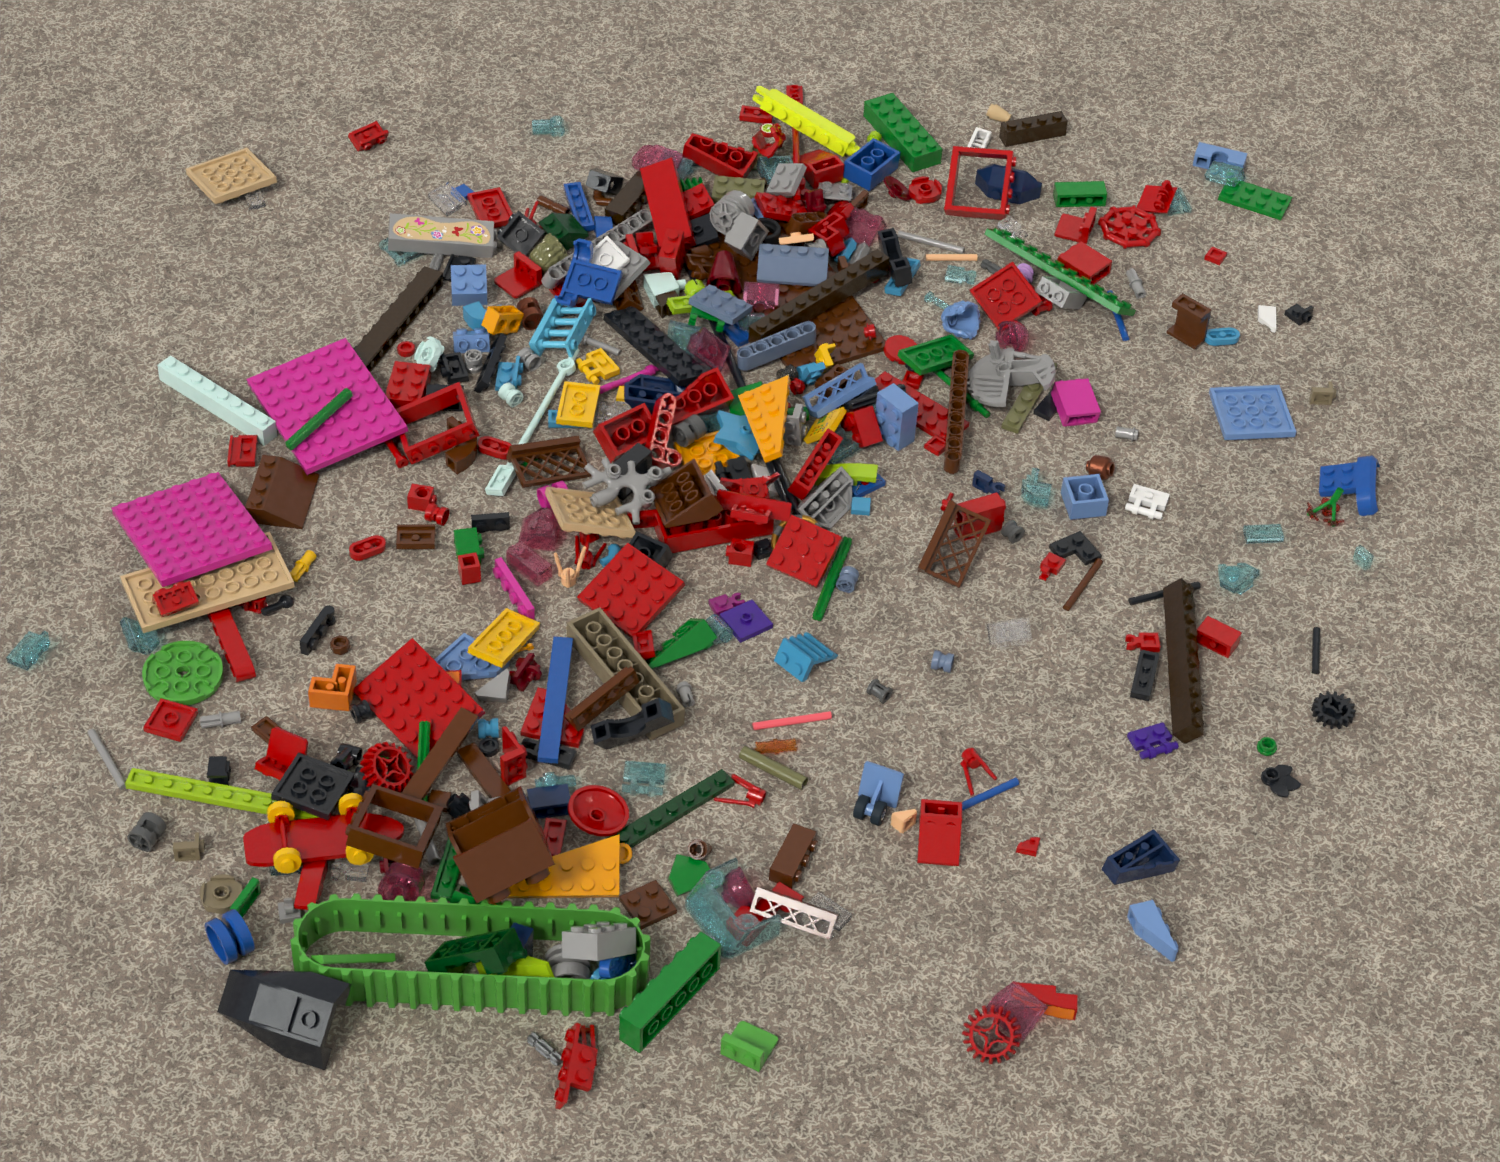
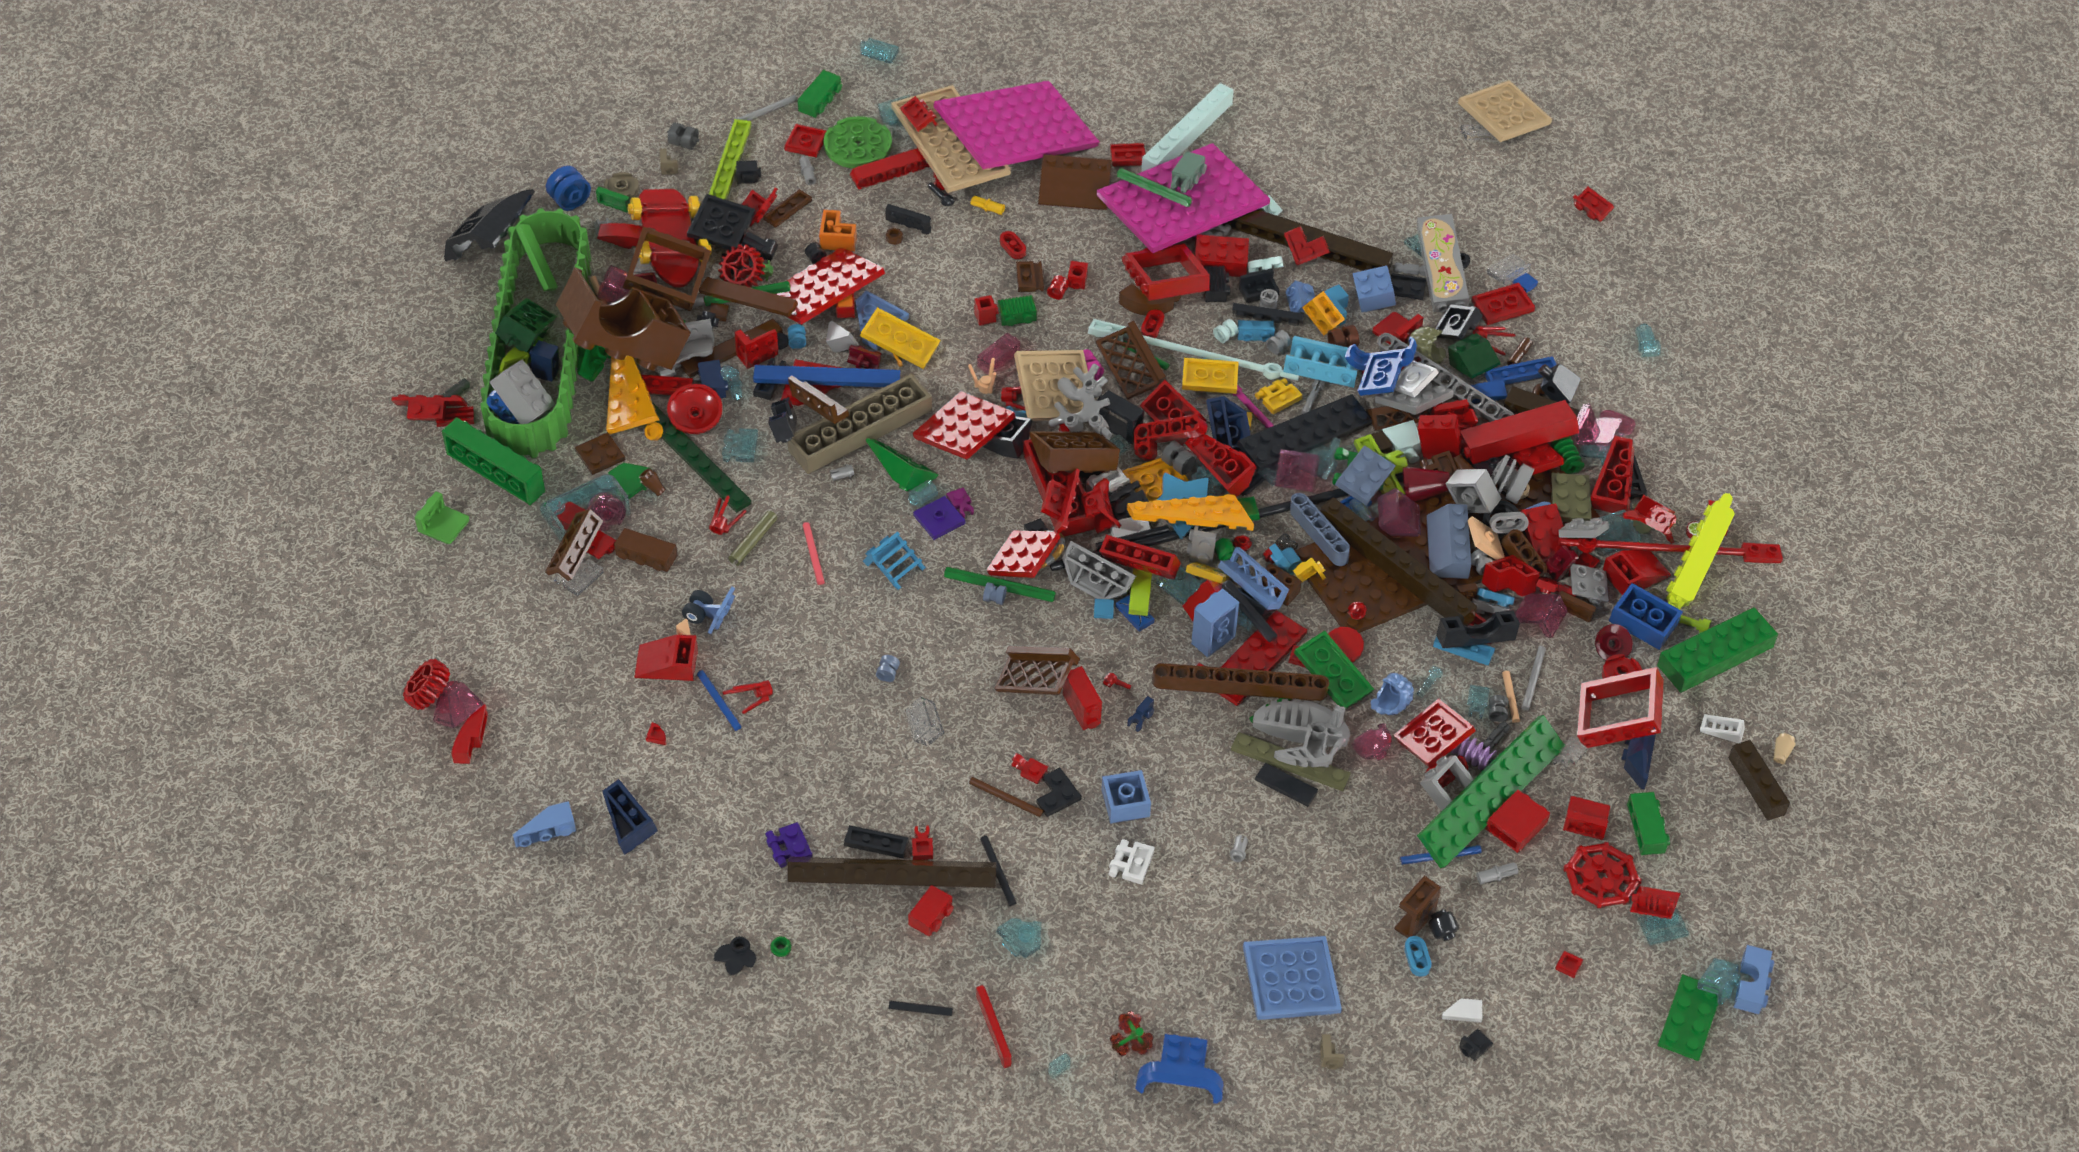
camera: 90 degrees right, 5 degrees up
(95, 705) = (819, 93): none -> green brick
(304, 390) = (1188, 171): none -> sand green hinge
(406, 349) = (1285, 253): red tile -> none
(410, 326) = (1303, 250): none -> red plate
(491, 522) = (1048, 319): black plate -> none
(515, 591) = (964, 345): dark pink plate -> none
(644, 644) = (898, 438): red plate -> none
(740, 552) = (1024, 509): red brick -> none
(776, 746) = (779, 539): clear orange pin -> none
(781, 220) = (1508, 522): none -> light grey plate
(879, 691) = (848, 617): dark grey bush -> none
(968, 262) = (1498, 708): none -> dark grey wheel
(1012, 531) = (1073, 733): dark grey wheel -> none
(1035, 492) = (1135, 752): clear light blue brick -> none
(1075, 402) = (1276, 796): dark pink brick -> none
(1100, 465) = (1178, 817): copper head -> none
(1263, 533) = (1092, 970): clear light blue plate -> none
(1331, 598) = (993, 1026): none -> red tile
(1333, 710) = (818, 1013): black gear -> none

